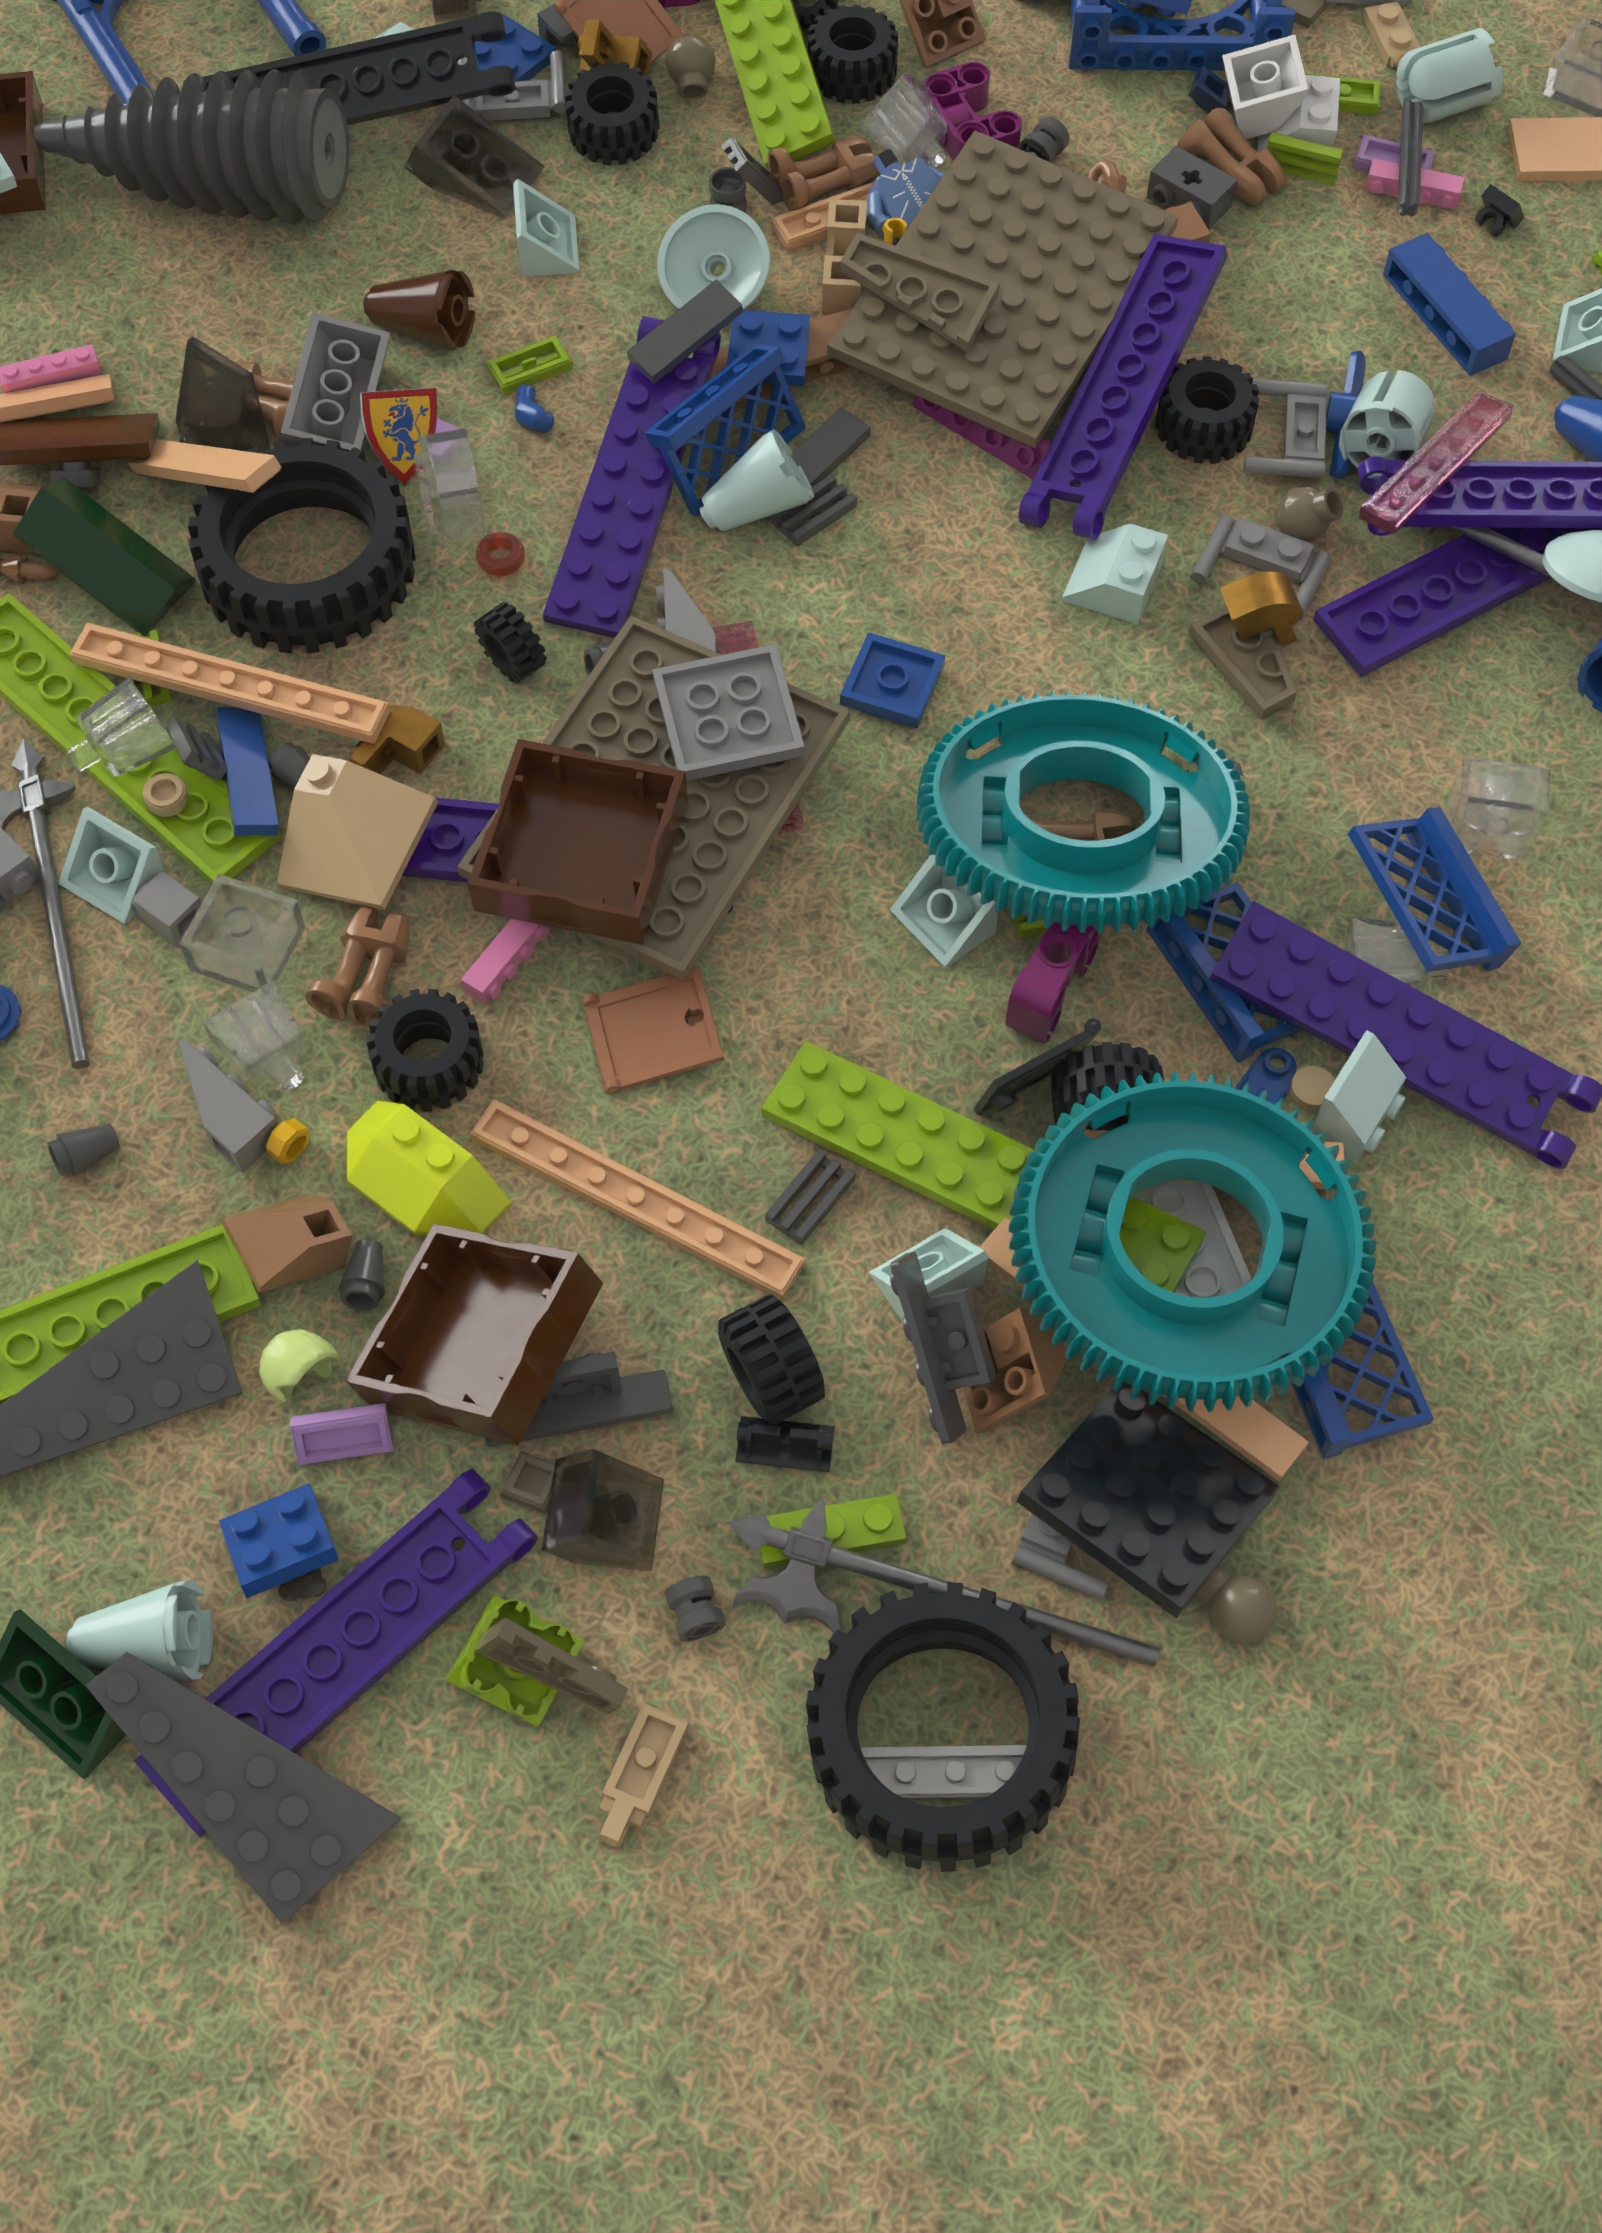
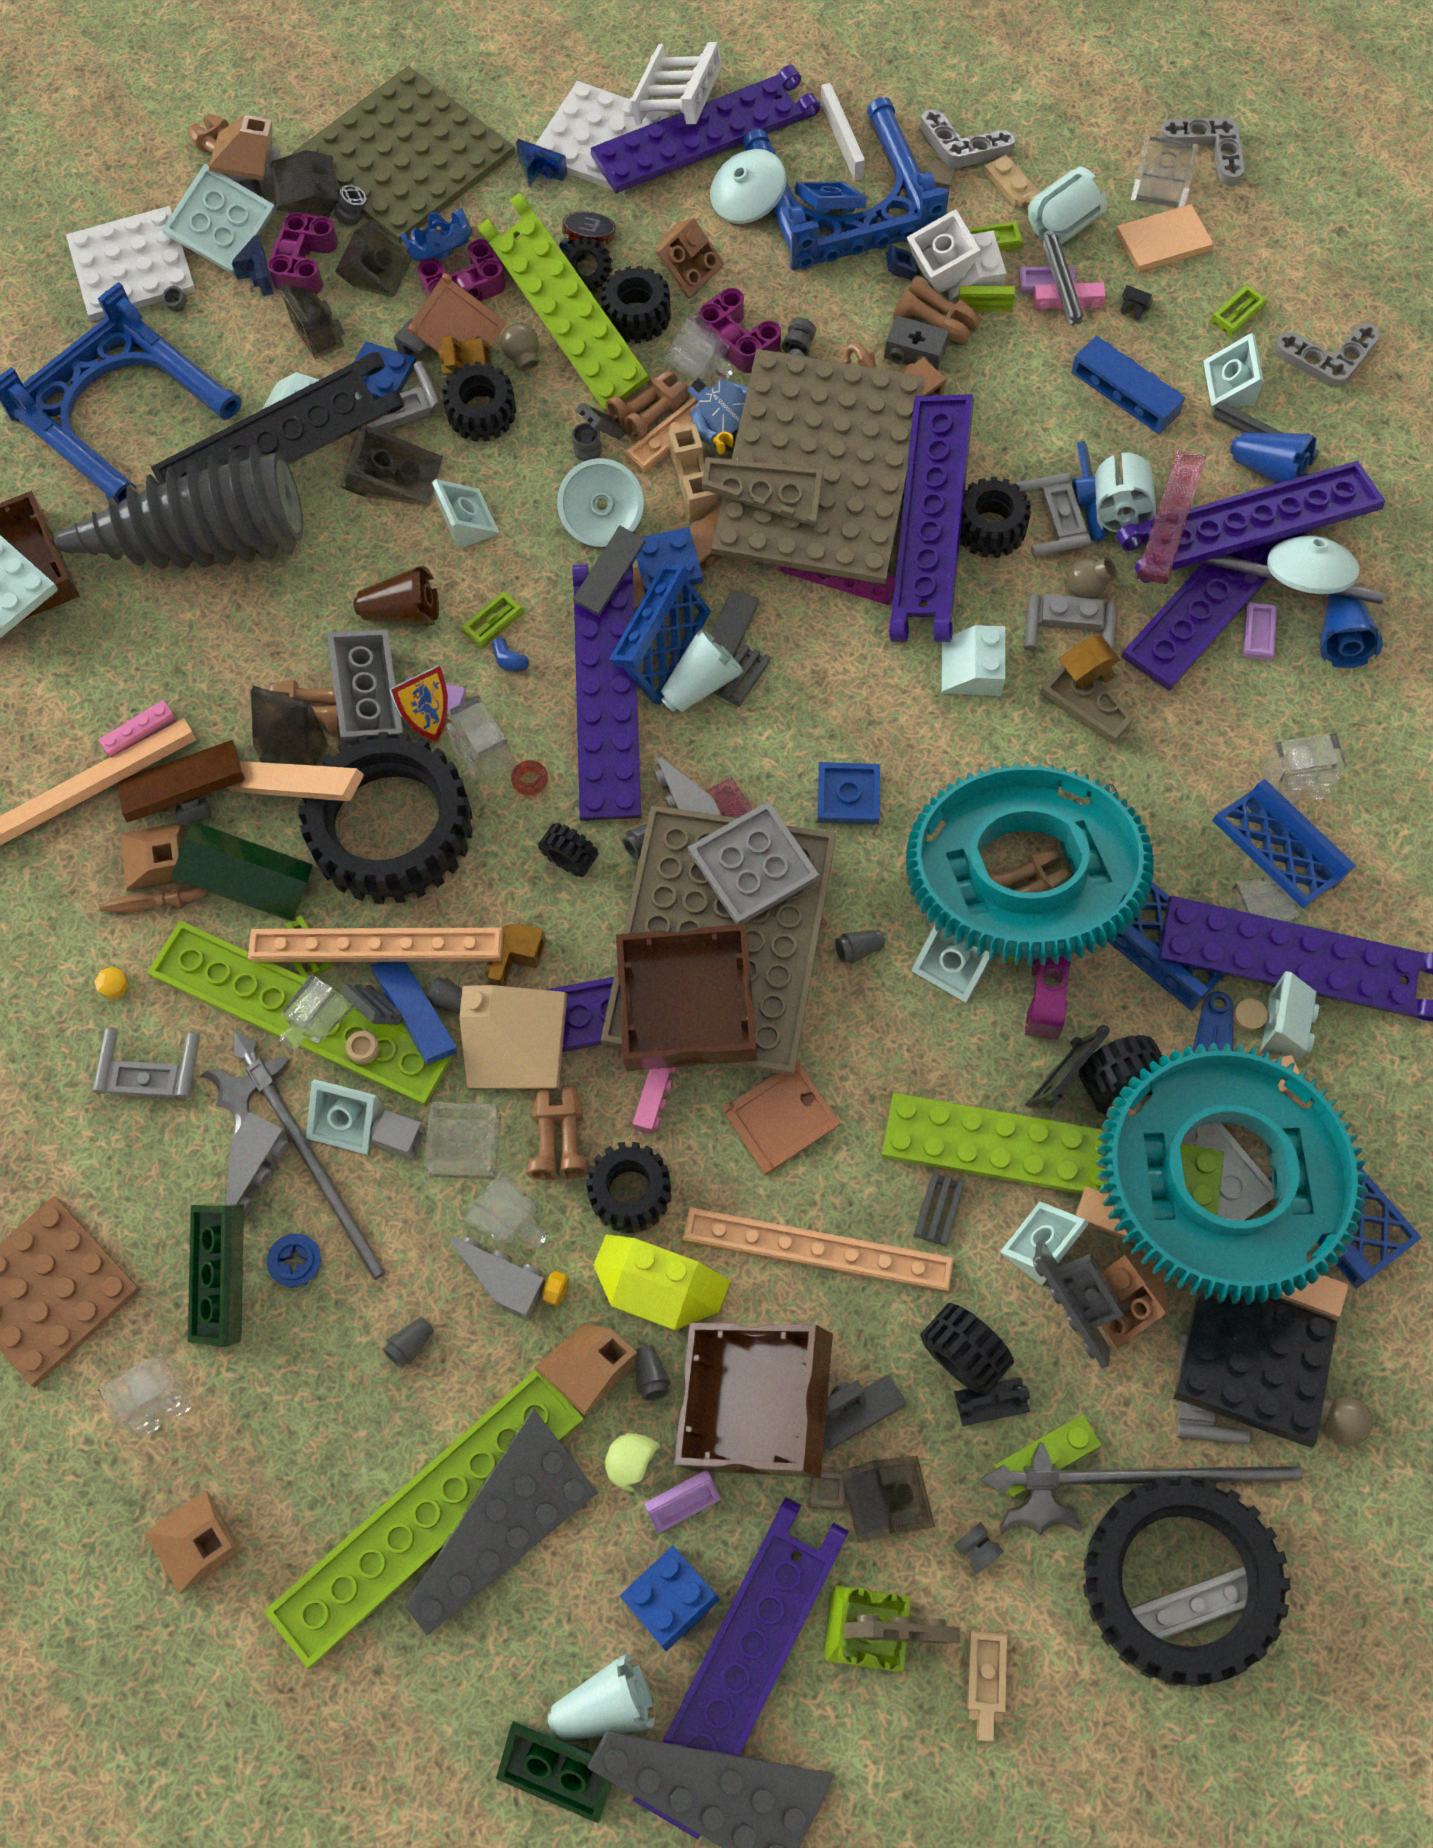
camera: 15 degrees left, 5 degrees up
(833, 858) = (857, 945): none -> dark grey cone
(1509, 639) = (1259, 631): none -> lavender tile

